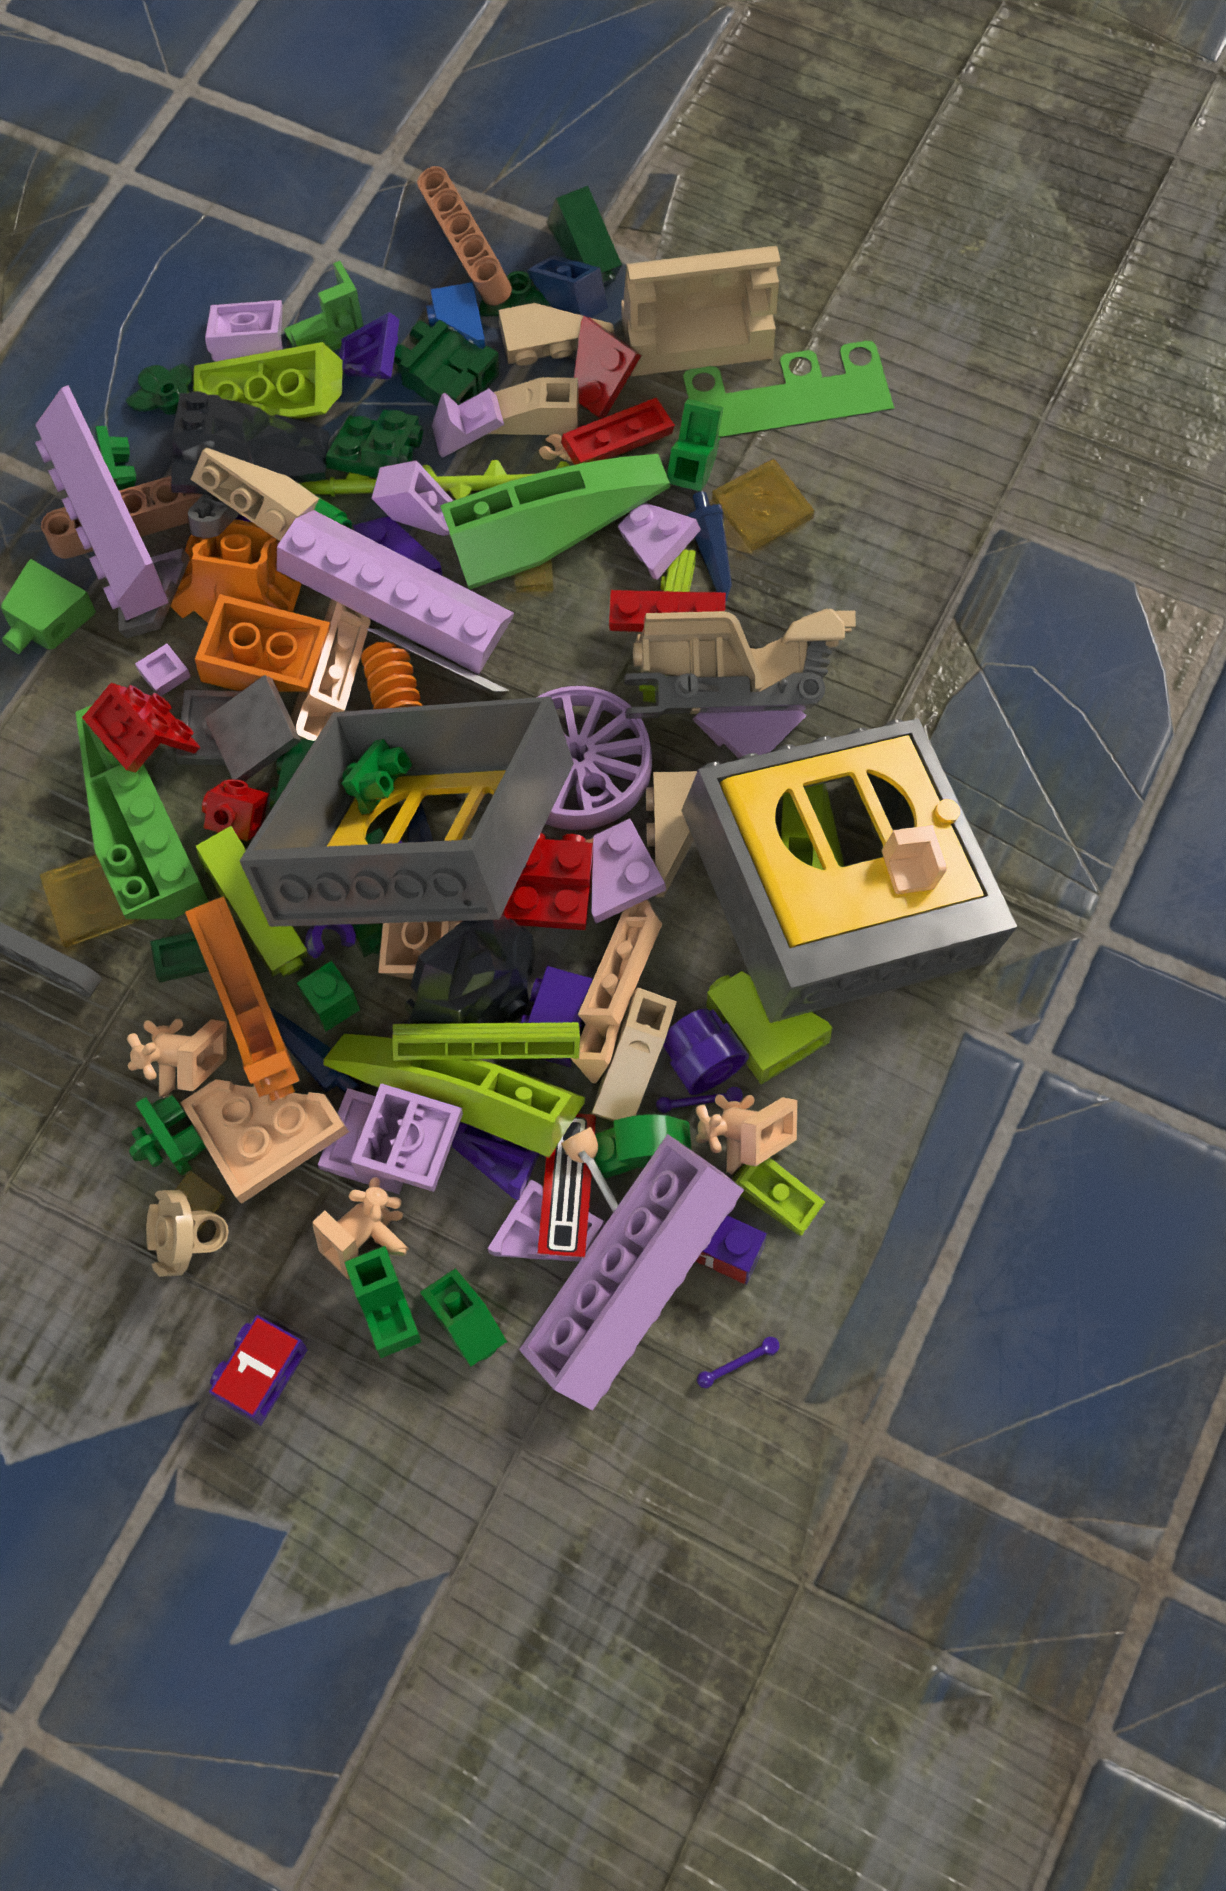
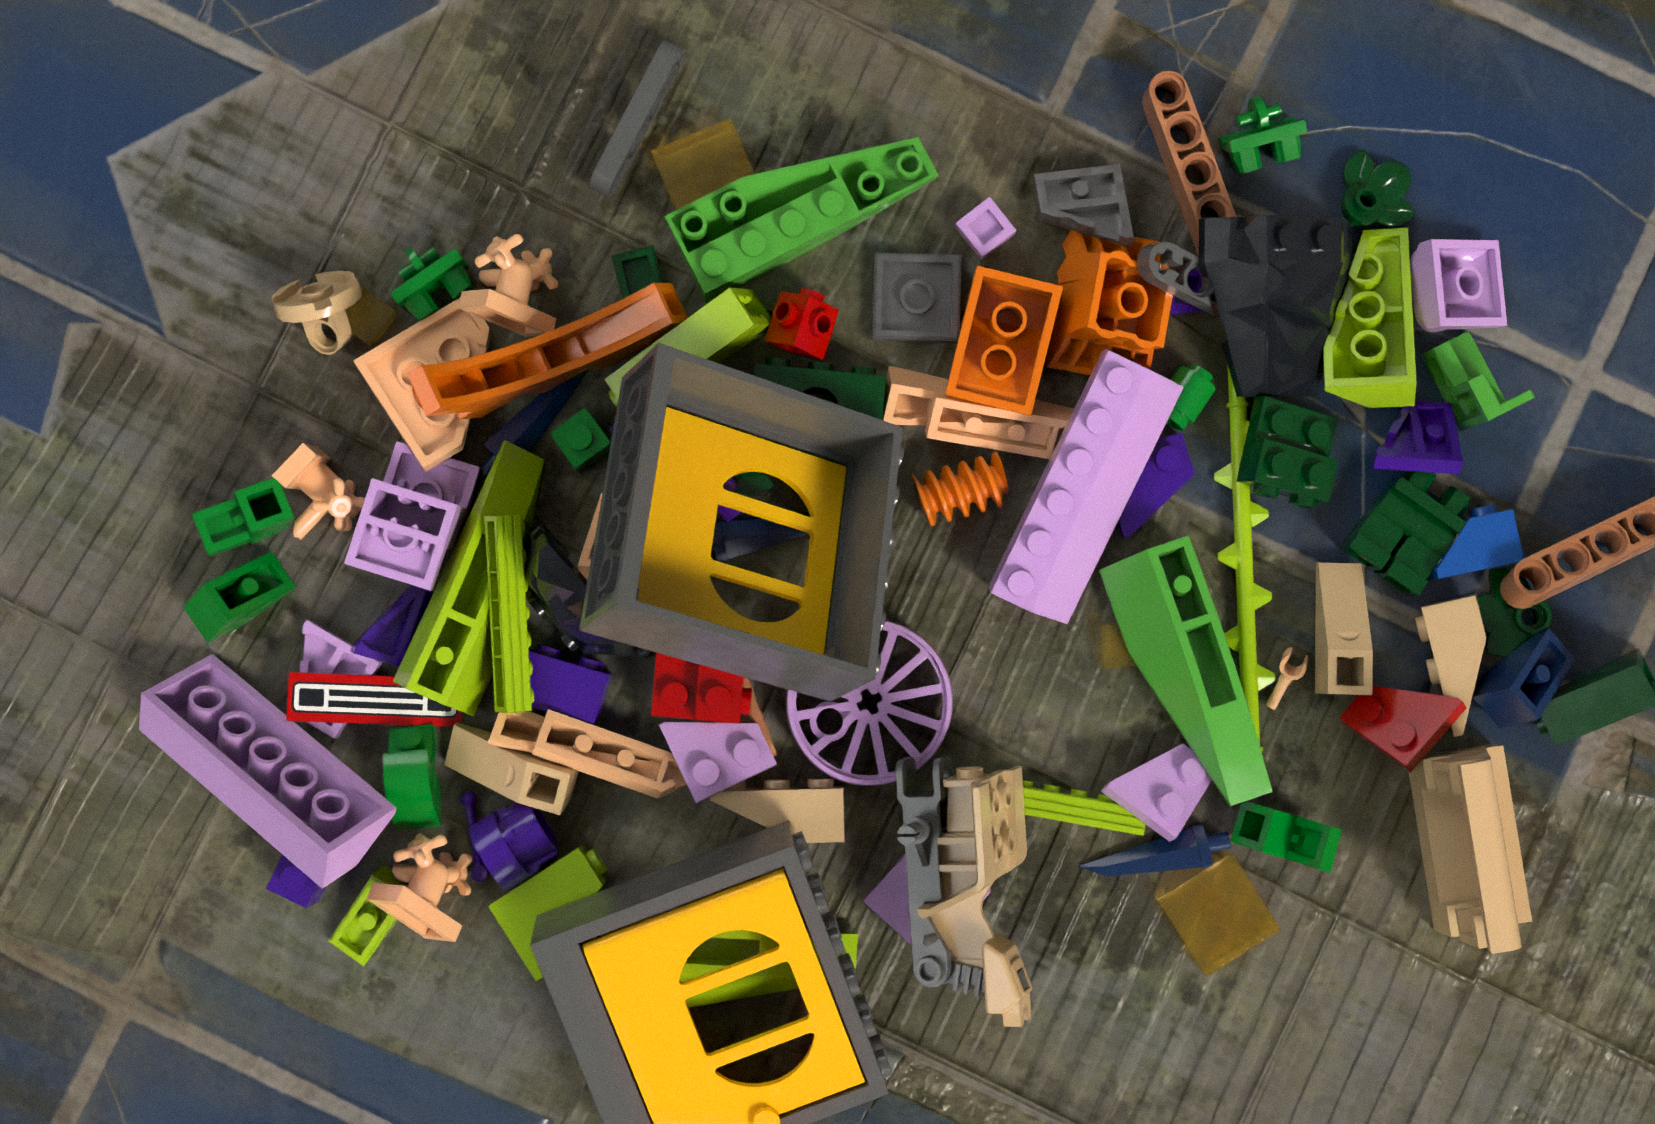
camera: 80 degrees right, 20 degrees up
(43, 609) = (1062, 83): bright green torso -> none
(99, 507) = (1174, 137): lavender slope -> none
(135, 725) = (891, 211): red bracket -> none
(253, 491) = (1191, 324): tan slope -> none
(253, 729) = (896, 337): flat silver tile -> none
(257, 1369) = (185, 395): red brick -> none
(375, 774) = (826, 474): green hips -> none
(411, 497) = (1210, 501): lavender slope -> none
(441, 661) = (996, 541): white sticker -> none
(464, 423) = (1323, 561): lavender slope -> none
(583, 1148) = (409, 714): hinge -> none
(618, 433) = (1309, 742): red plate -> none
(630, 606) = (1055, 803): red plate -> none
(769, 1347) = (213, 905): dark purple hinge -> none
(802, 397) = (1371, 963): bright green piece -> none
(914, 859) = (690, 1084): light nougat panel -> none

